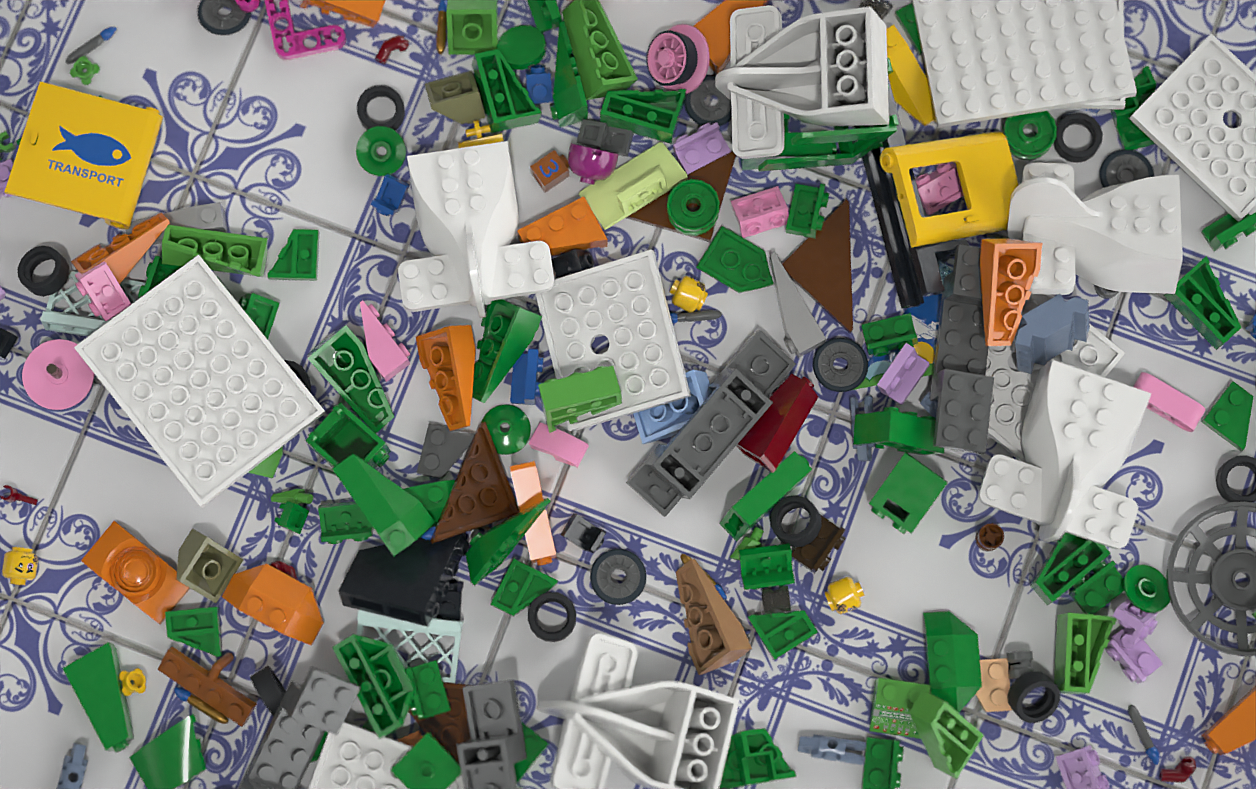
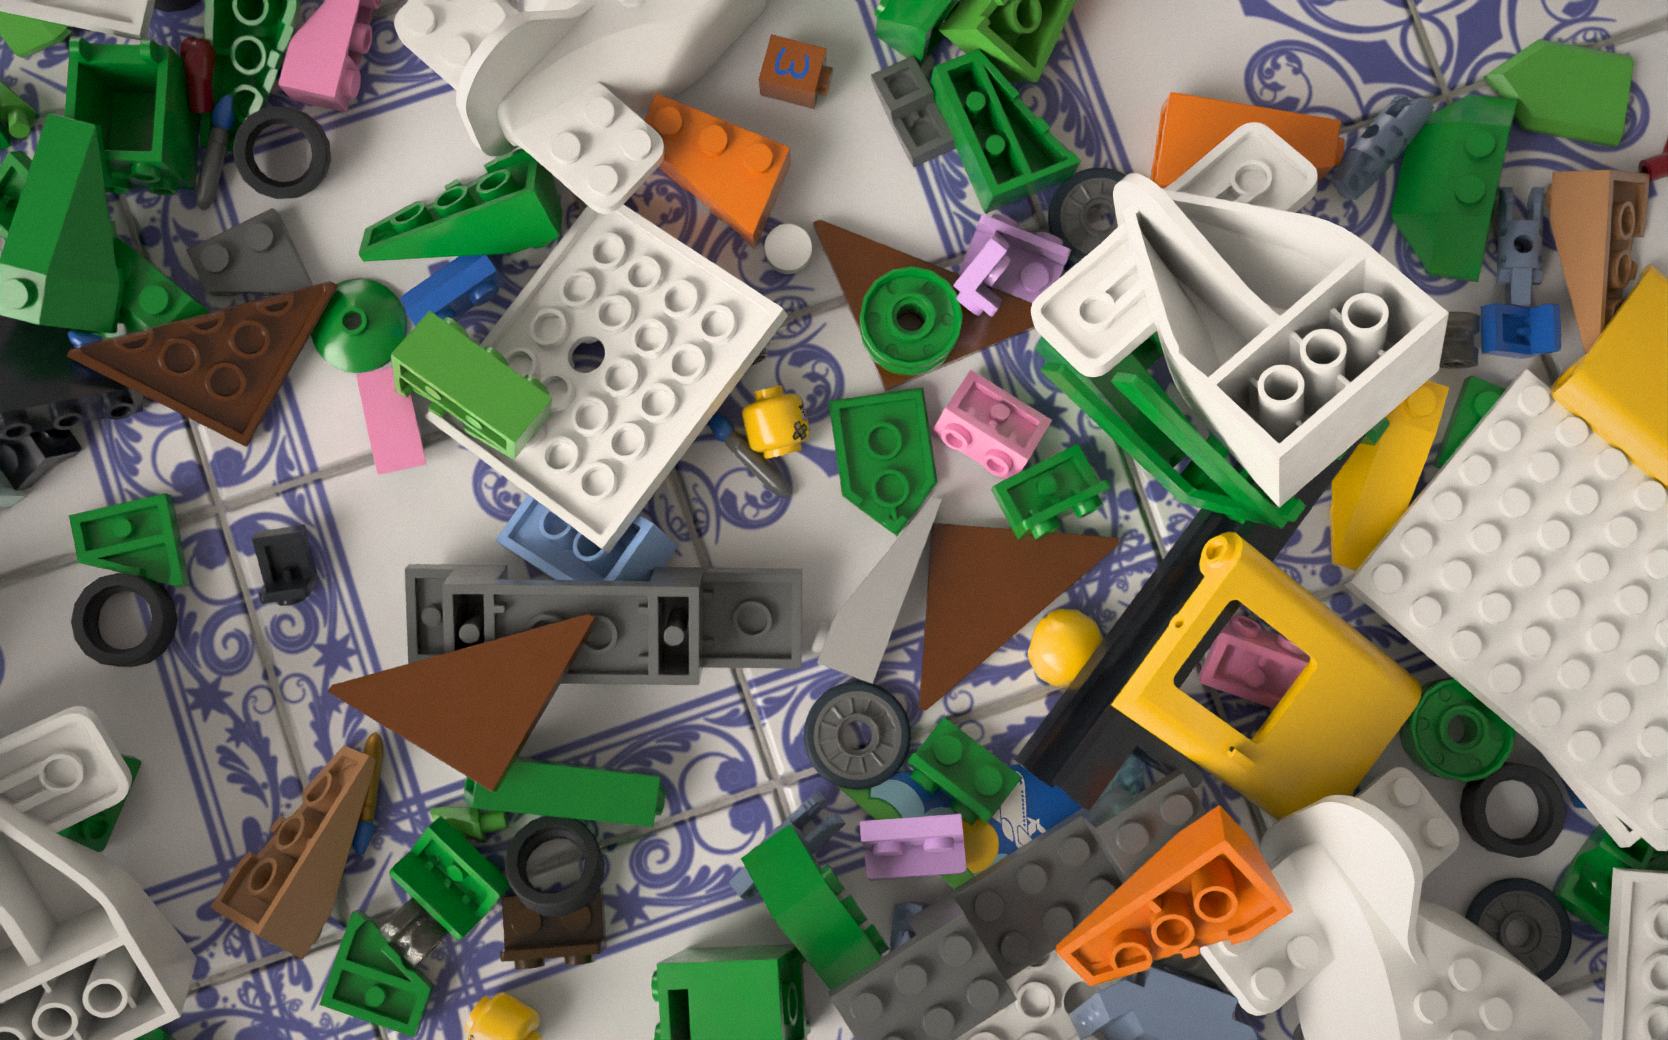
camera: 45 degrees right, 5 degrees up
(352, 403) = (199, 72): none -> dark red arm
(386, 428) = (222, 120): none -> dark grey piece
(430, 397) = (250, 172): none -> black tyre
(450, 363) = (393, 160): orange wedge -> none
(496, 544) = (153, 452): green wedge -> none
(528, 494) = (253, 464): slope -> none
(572, 262) = (683, 218): black bracket -> none
(591, 163) = (853, 118): magenta cylinder -> none
(618, 560) = (236, 662): wheel -> none
(620, 233) = (788, 248): none -> white tile
(634, 185) = (872, 208): yellowish green bracket -> none
(678, 58) = (1119, 112): bright pink piece -> none
(697, 162) = (985, 267): none -> lavender bracket
(708, 492) = (474, 702): none -> reddish brown tile
(780, 423) = (683, 722): dark red slope -> none
(871, 256) = (1063, 645): none -> yellow hair

